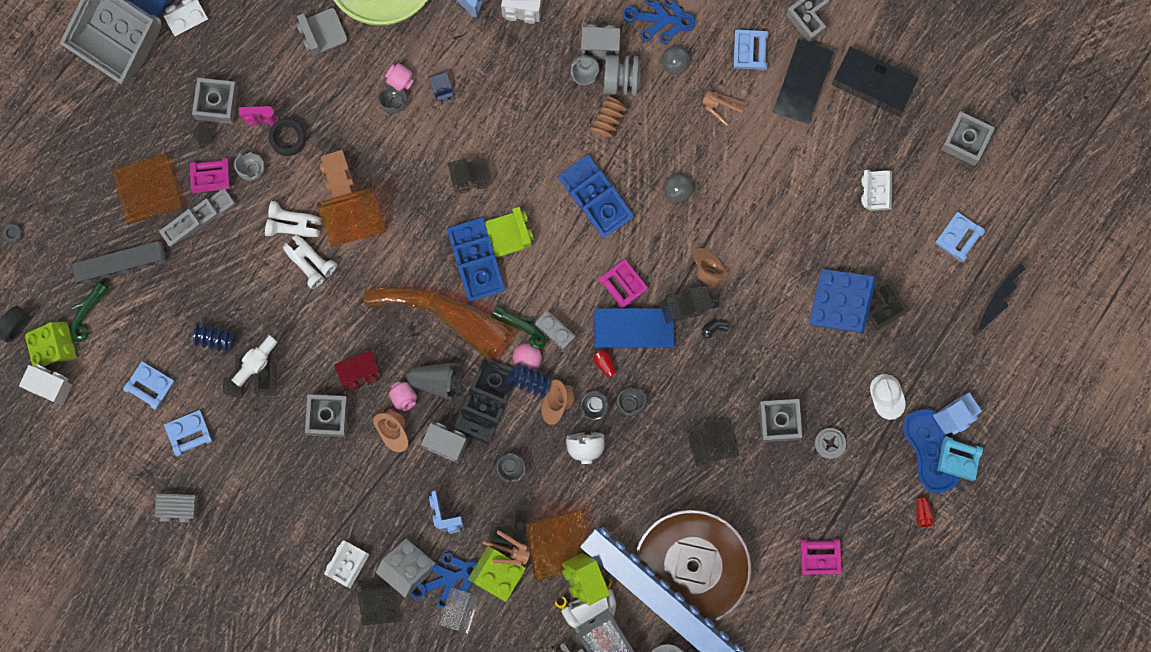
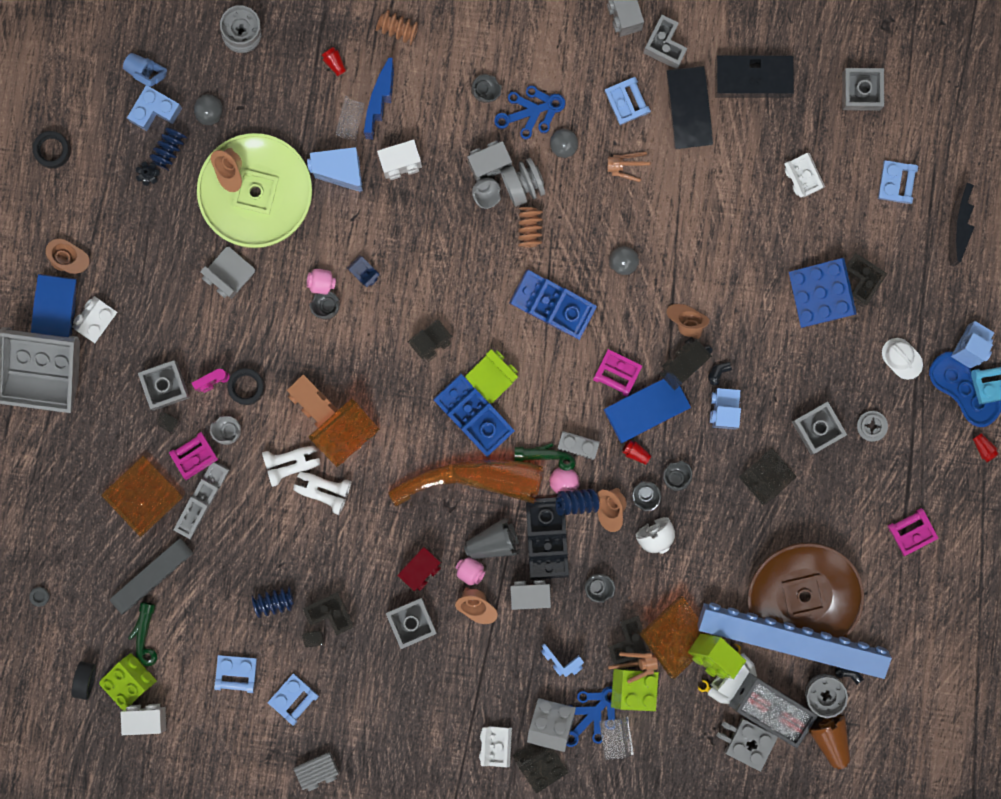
camera: 30 degrees left, 5 degrees up
(254, 361) = (323, 607): white pin -> none
(704, 363) = (726, 409): none -> light blue brick

